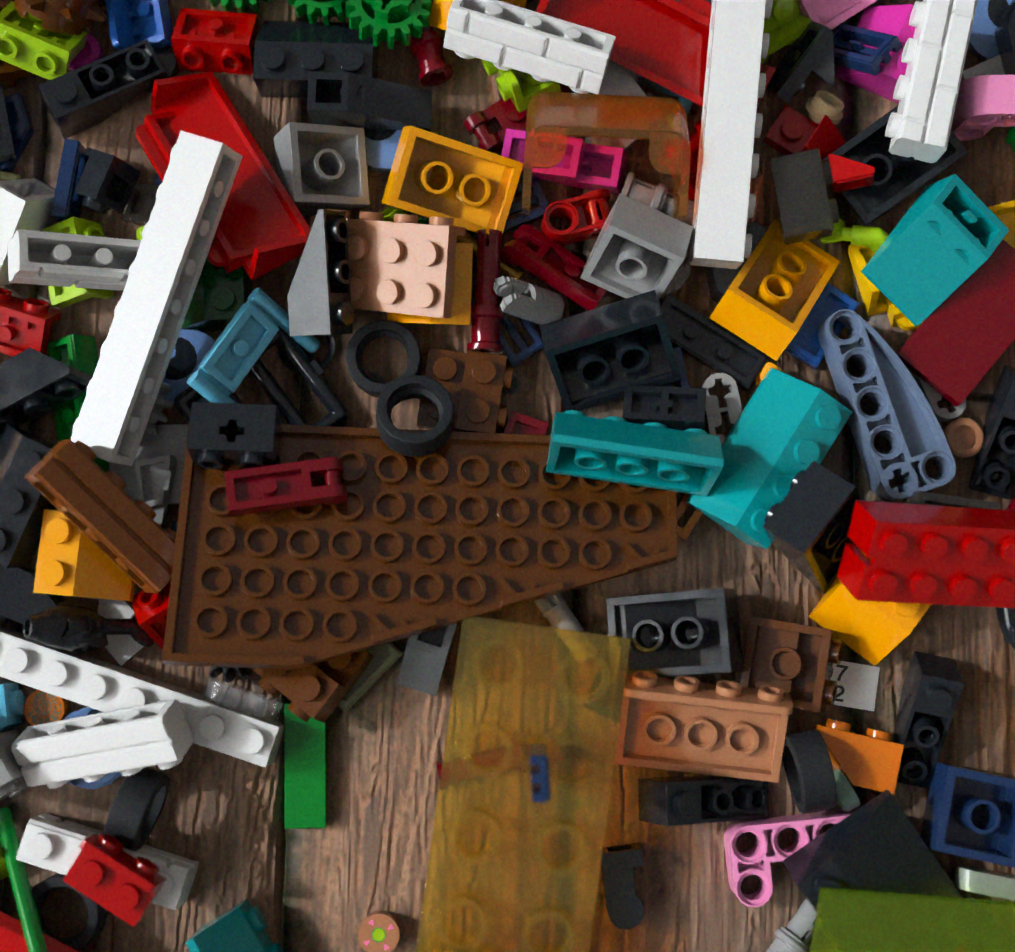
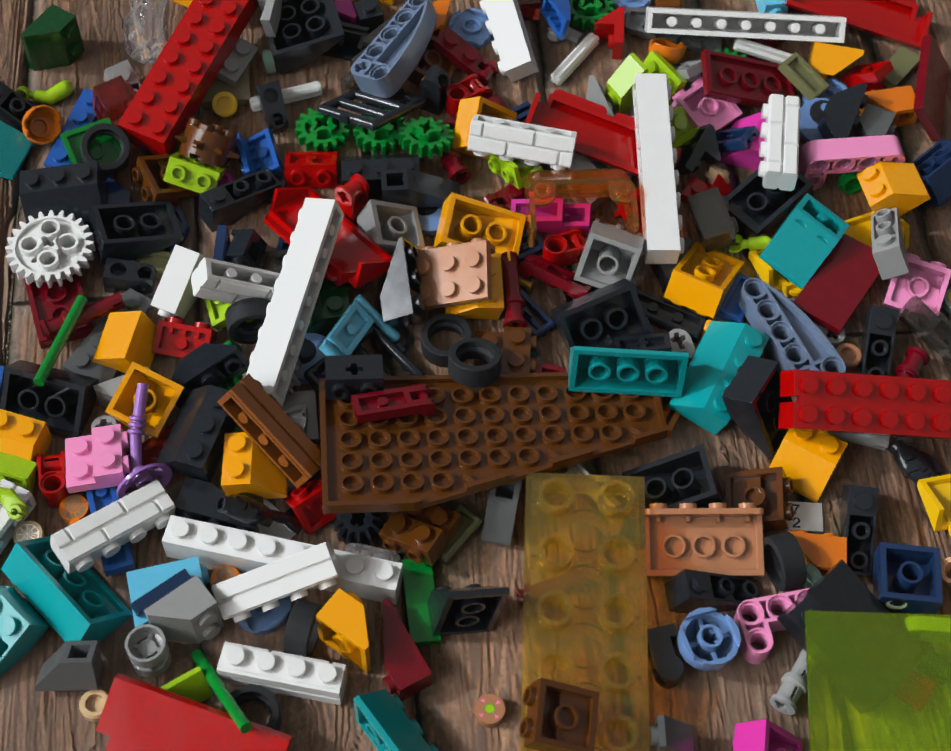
camera: 10 degrees left, 25 degrees down
(91, 308) = (242, 311): none -> black tyre
(115, 878) = (296, 664): red bracket -> none
(197, 816) = (344, 628): none -> light orange slope
(267, 108) = (352, 196): none -> red piece
(269, 856) = (404, 665): none -> dark red slope
(358, 799) = (465, 609): none -> black slope
(528, 300) = (540, 293): light grey hinge -> none
(539, 772) = (597, 542): dark blue tile -> none
(684, 883) = (708, 639): none -> medium blue cylinder
(849, 173) = (740, 201): red slope -> none

